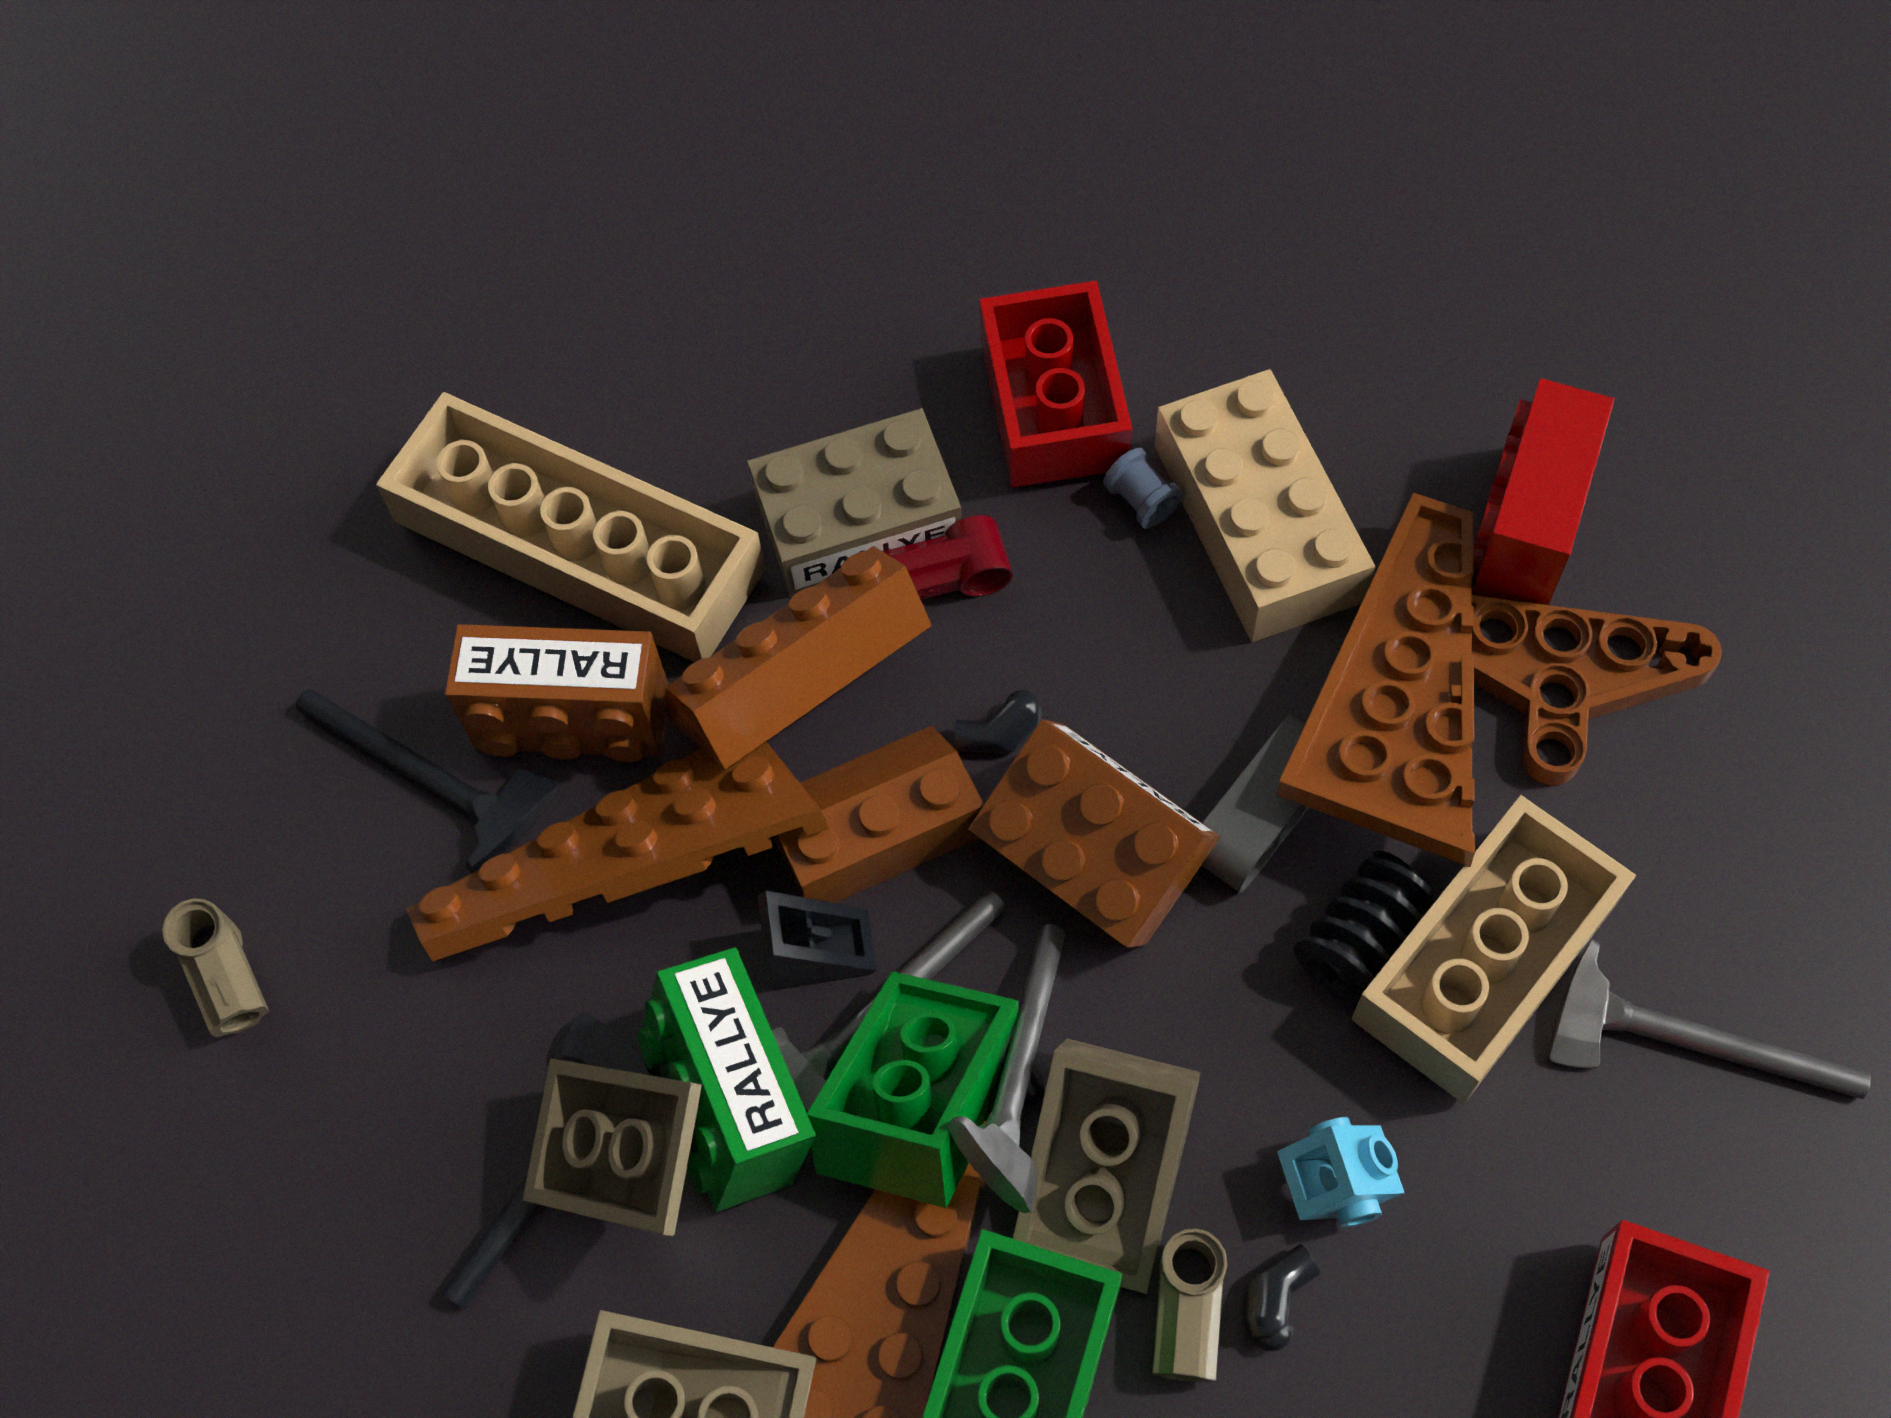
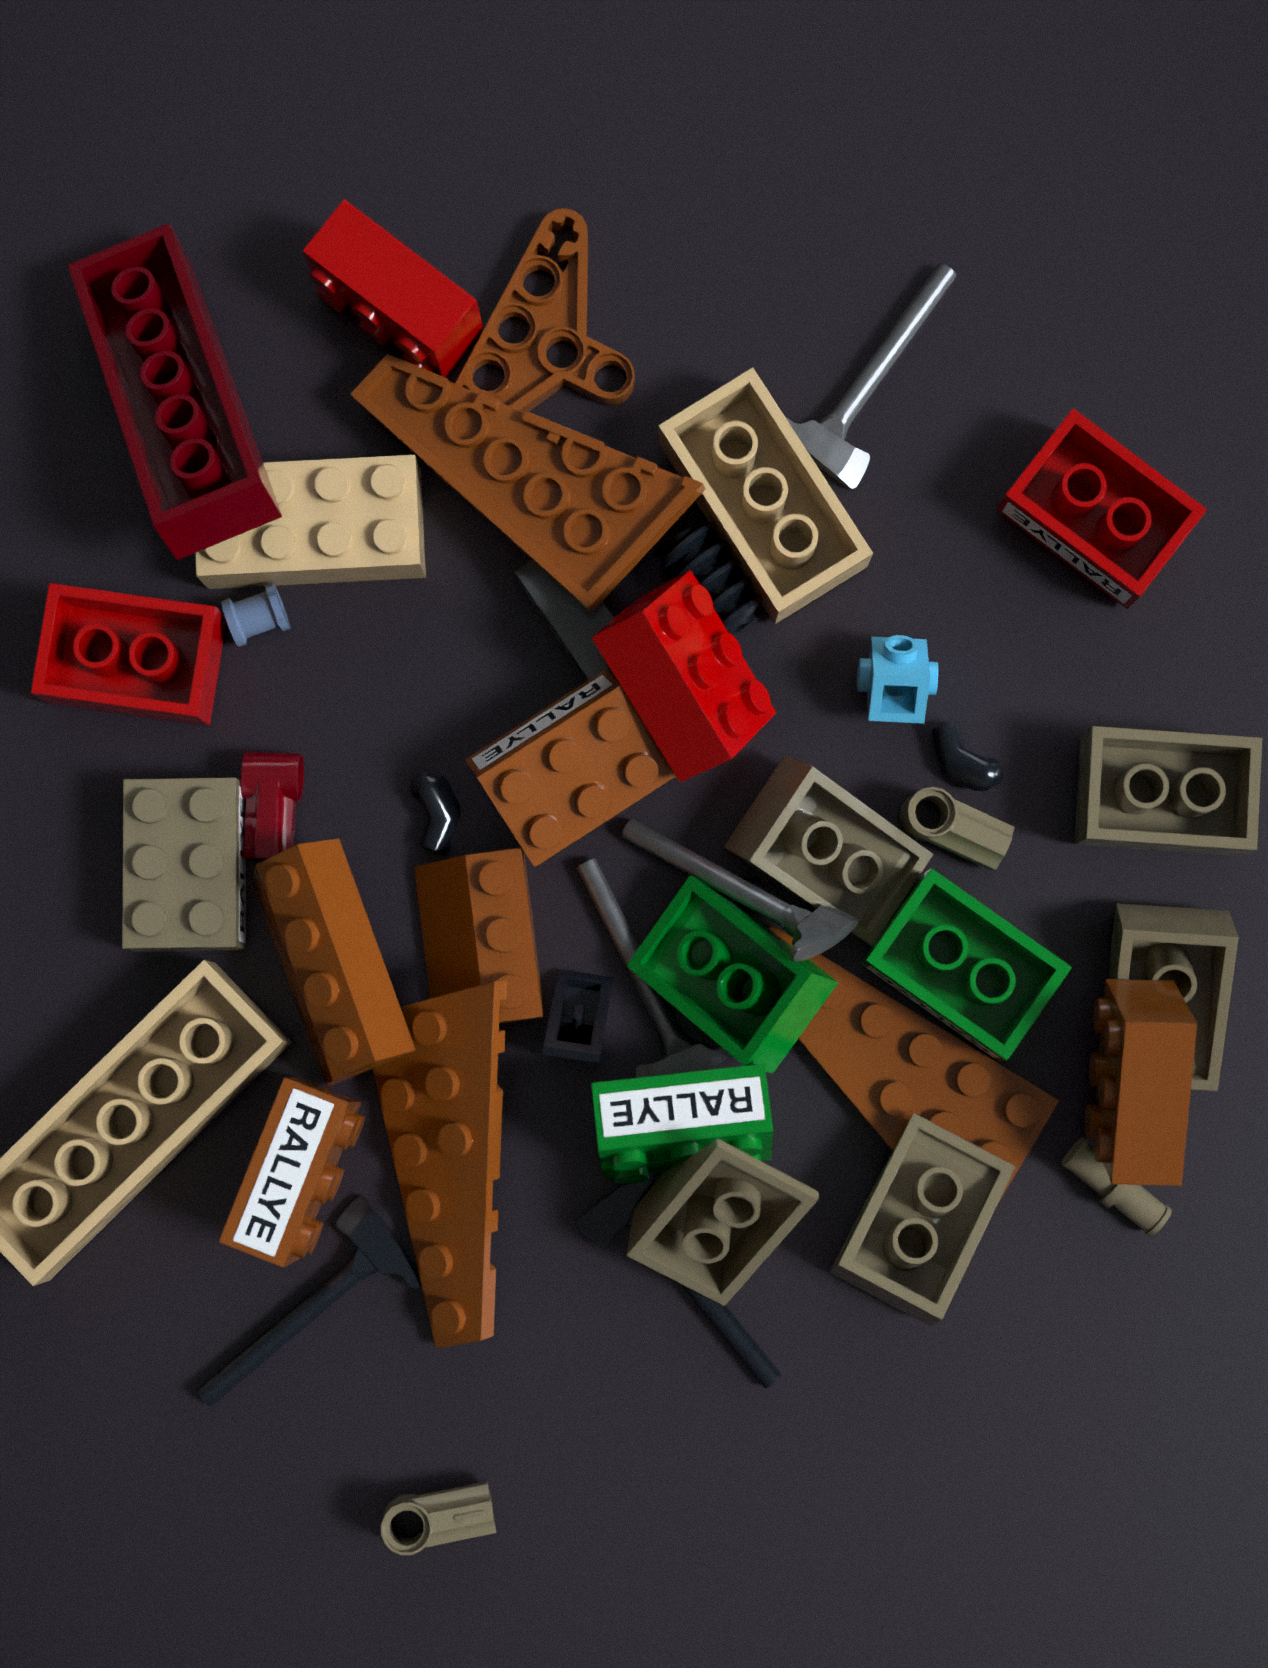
camera: 75 degrees left, 20 degrees up
(1245, 910) = (685, 676): none -> red brick
(1334, 320) = (173, 393): none -> dark red brick

